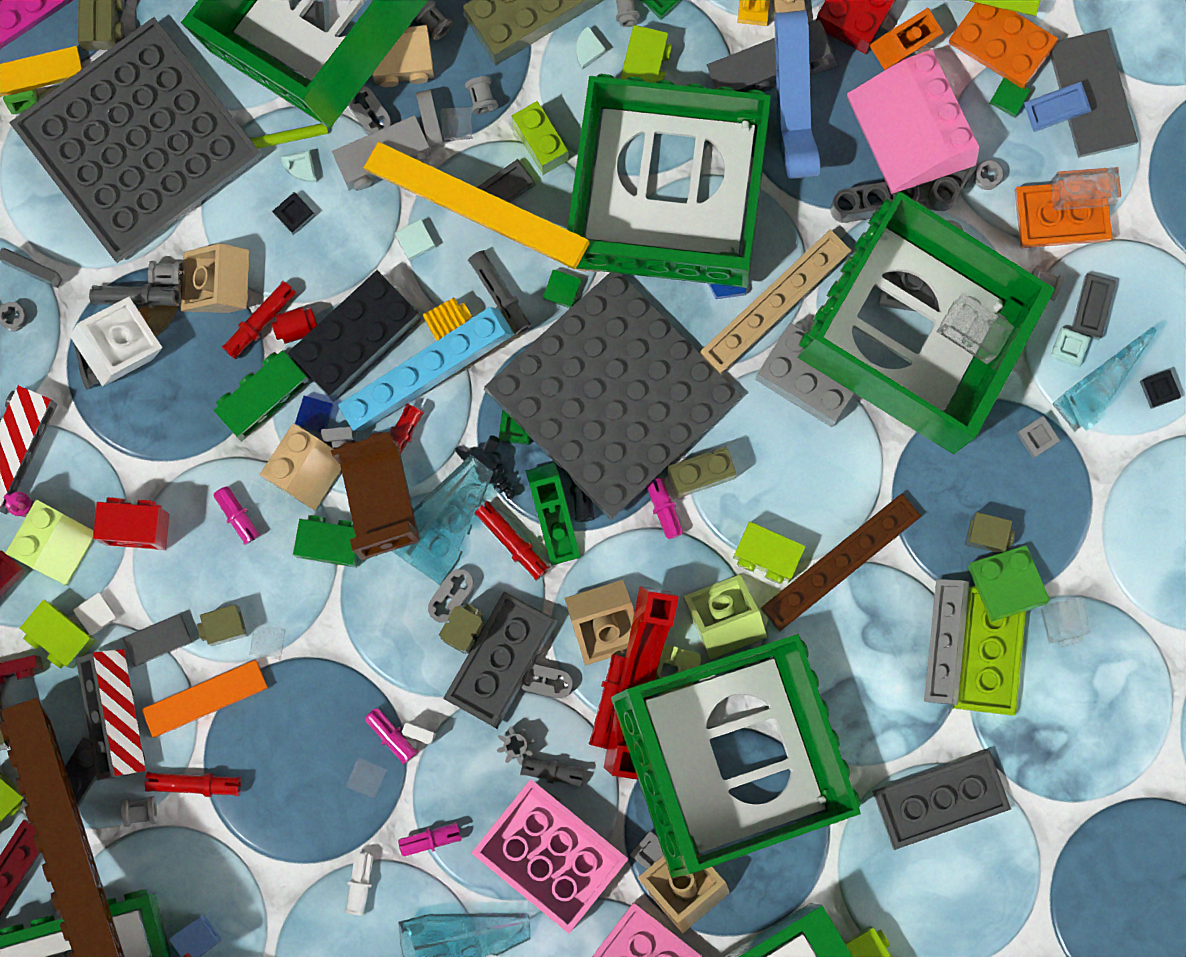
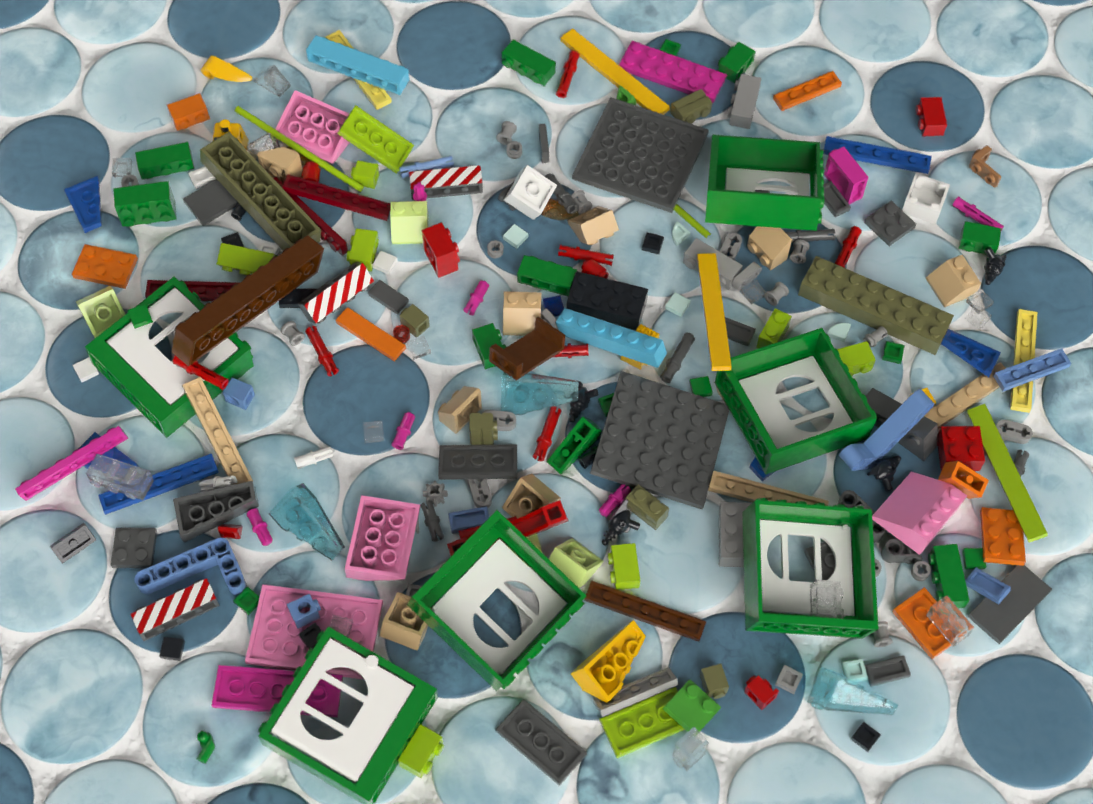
camera: 60 degrees right, 20 degrees down
(162, 448) = (495, 254): none -> light grey bush
(164, 401) = (515, 236): none -> light aqua tile
(222, 656) = (397, 331): none -> clear red bush
(405, 640) = (457, 411): none -> tan slope
(418, 733) = (412, 442): white tile -> none
(429, 839) = (357, 478): dark pink axle -> none
(578, 719) = (468, 519): none -> medium blue tile
(703, 522) = (619, 523): none -> black piece
(829, 126) = (885, 471): none -> black piece
(891, 658) = (607, 667): none -> yellow wedge
(1019, 147) = (948, 574): none -> green brick
(1034, 483) = (760, 691): none -> red brick

